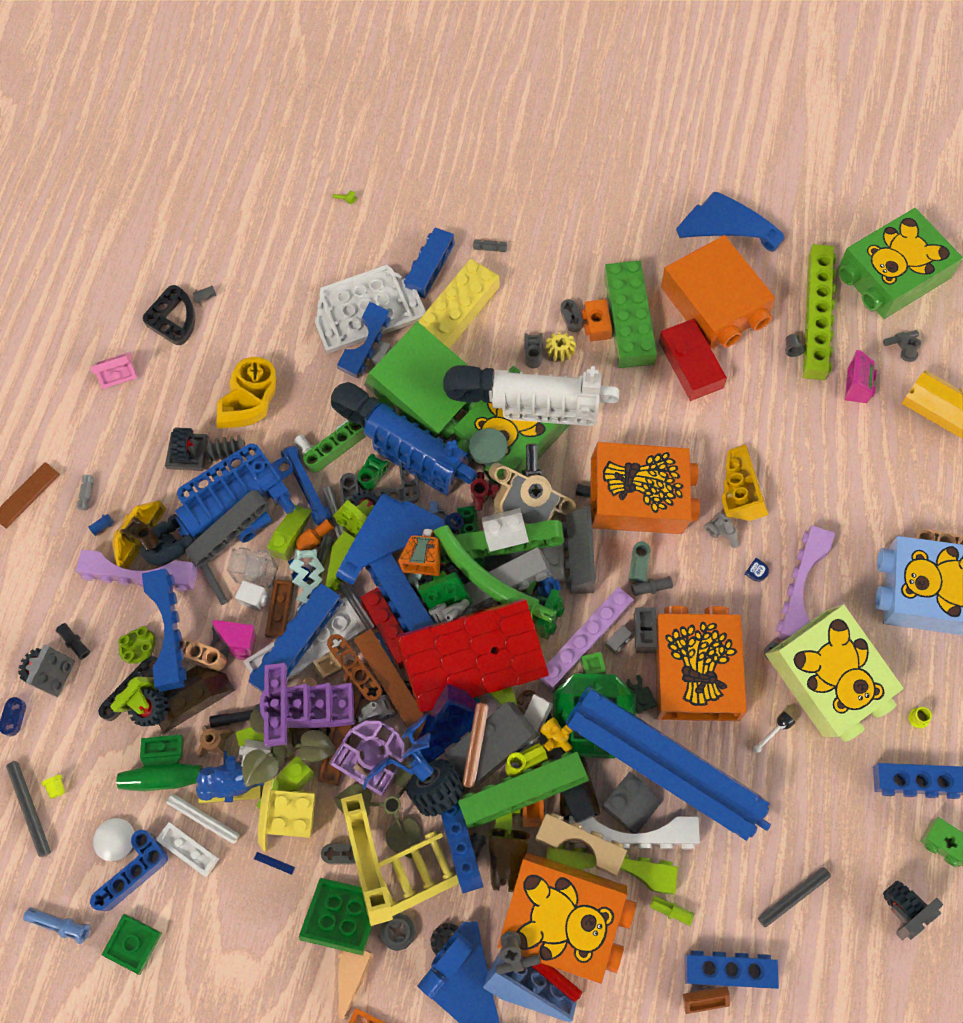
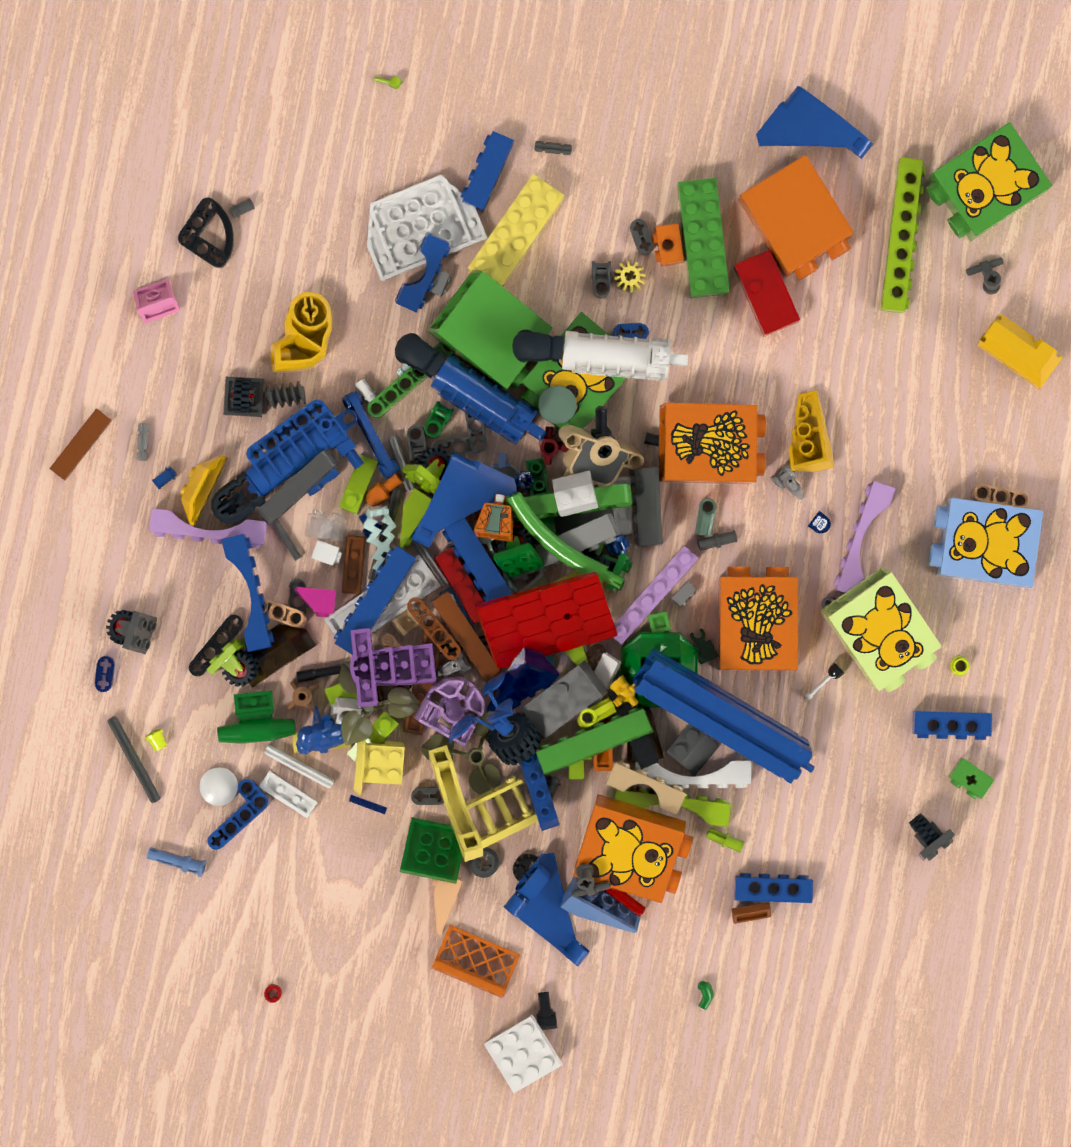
camera: 10 degrees left, 20 degrees up
(72, 641) = (153, 599): black pin -> none
(131, 944) = (247, 876): green plate -> none
(137, 645) = (217, 603): lime dish -> none
(140, 534) = (212, 496): dark brown piece -> none
(448, 613) = (522, 582): light grey piece -> none
(475, 745) = (550, 702): nougat axle -> none
(506, 856) = (580, 797): dark brown piece -> none
(645, 630) = (709, 587): dark grey brick -> none
(793, 346) = (873, 276): dark grey piece -> none
(794, 897) = (833, 826): dark grey axle -> none
(860, 378) = (937, 318): dark pink slope -> none

